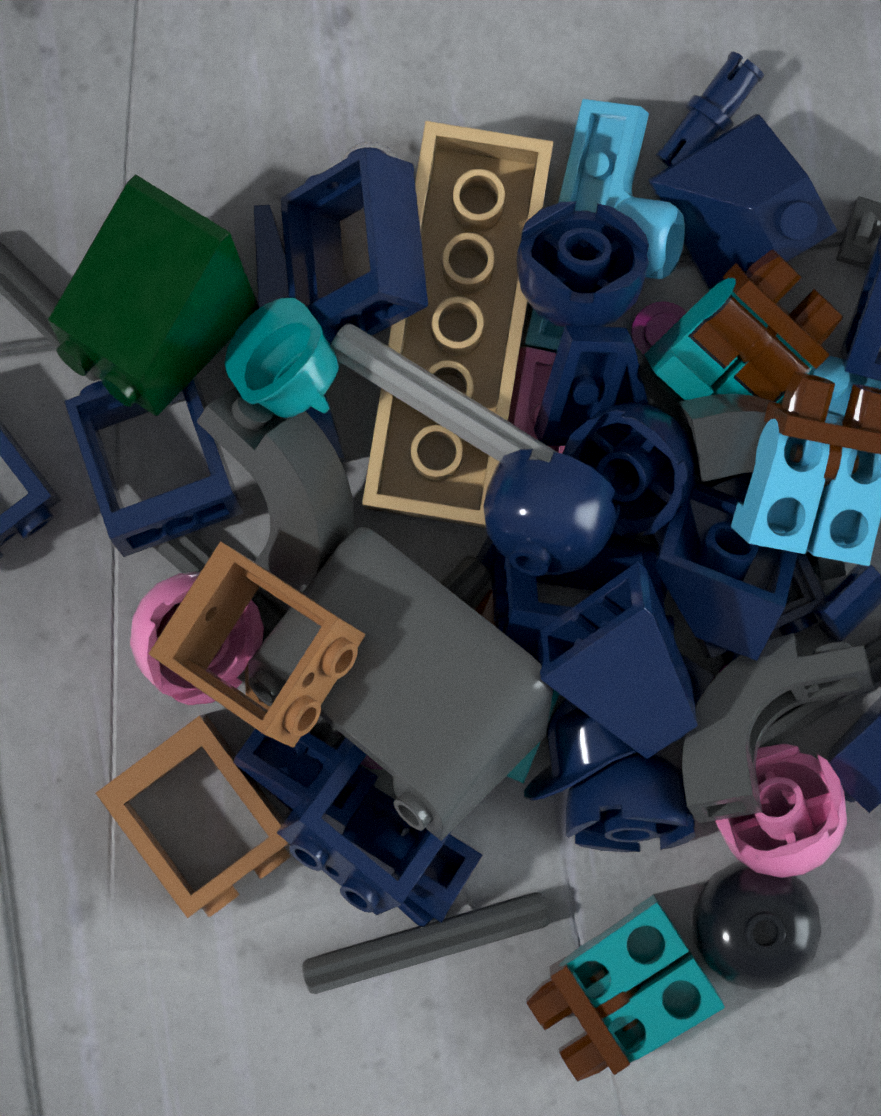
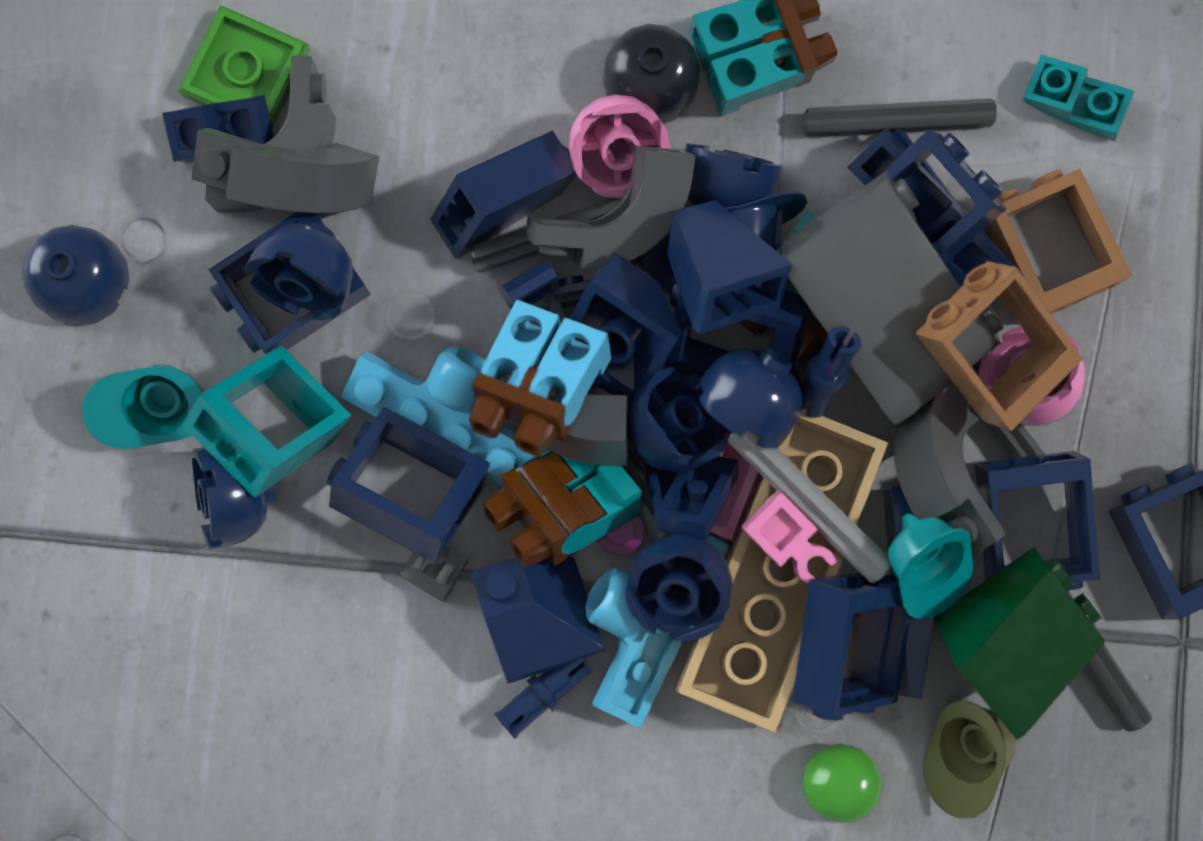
camera: 175 degrees left, 5 degrees down
(182, 147) = (967, 759): none -> olive piece
(201, 1023) = (1078, 100): none -> teal slope
(323, 91) = (842, 783): none -> bright green hair
(461, 565) = (829, 370): none -> dark blue pin
(469, 358) = (784, 534): none -> bright pink plate

